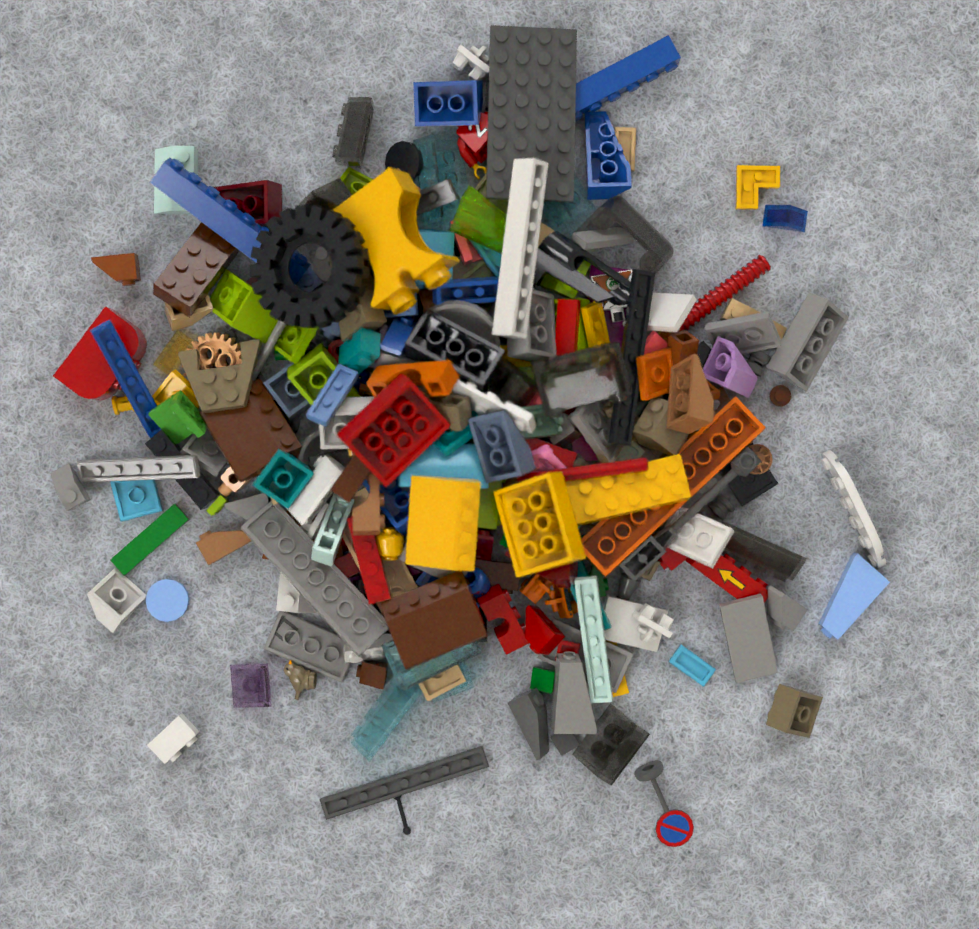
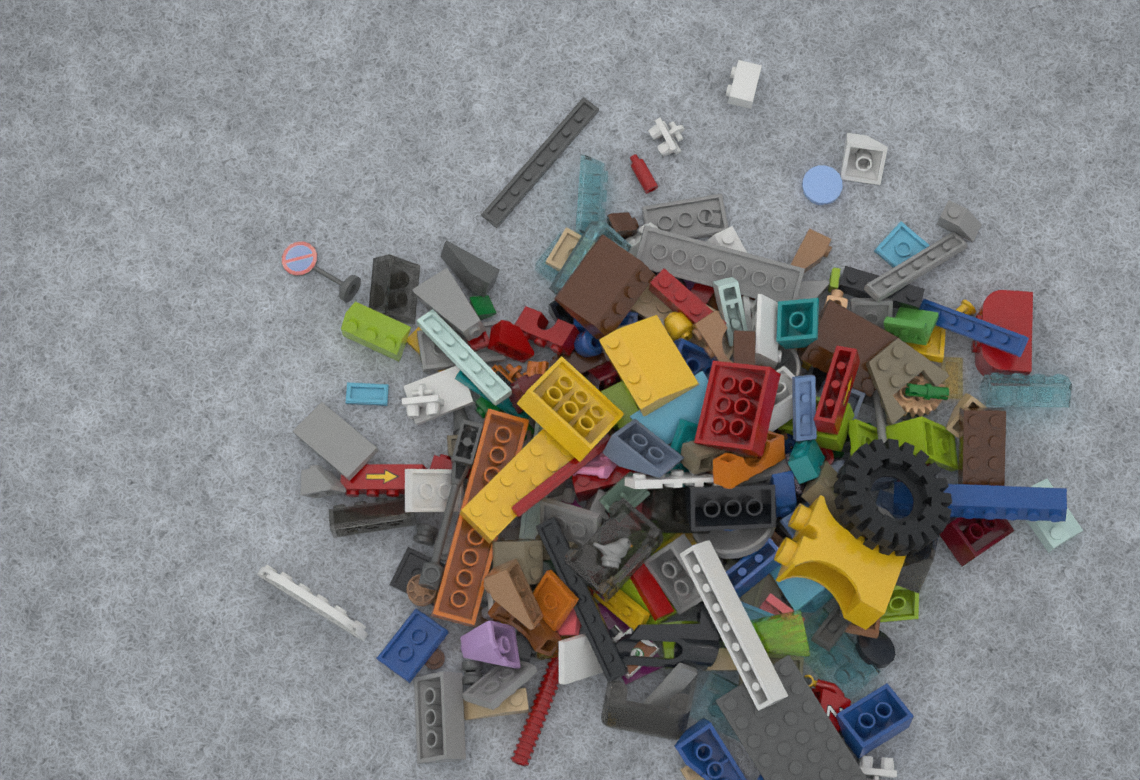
camera: 145 degrees right, 15 degrees down
(120, 267) = (1040, 418): dark orange slope -> none
(120, 294) = (1026, 391): none -> clear light blue slope
(149, 539) = (868, 222): green tile -> none
(208, 349) = (927, 391): none -> green pin
(250, 685) = (712, 160): clear purple slope -> none
(276, 742) = (670, 145): none -> white hips
(291, 393) = (837, 390): none -> red brick
(300, 678) = (677, 189): dark tan animal -> none
(320, 712) = (643, 174): none -> red cylinder
(354, 132) = (932, 646): clear smoke slope -> none
(406, 830) = (514, 128): black hinge -> none
(564, 742) = (431, 268): dark grey tile -> none
(581, 376) = (613, 552): none -> light grey animal
(652, 716) = (375, 331): none -> lime slope
(792, 417) = (412, 645): none -> blue tile
(794, 711) = (259, 408): dark tan slope -> none
(853, 594) = (269, 534): light blue slope -> none

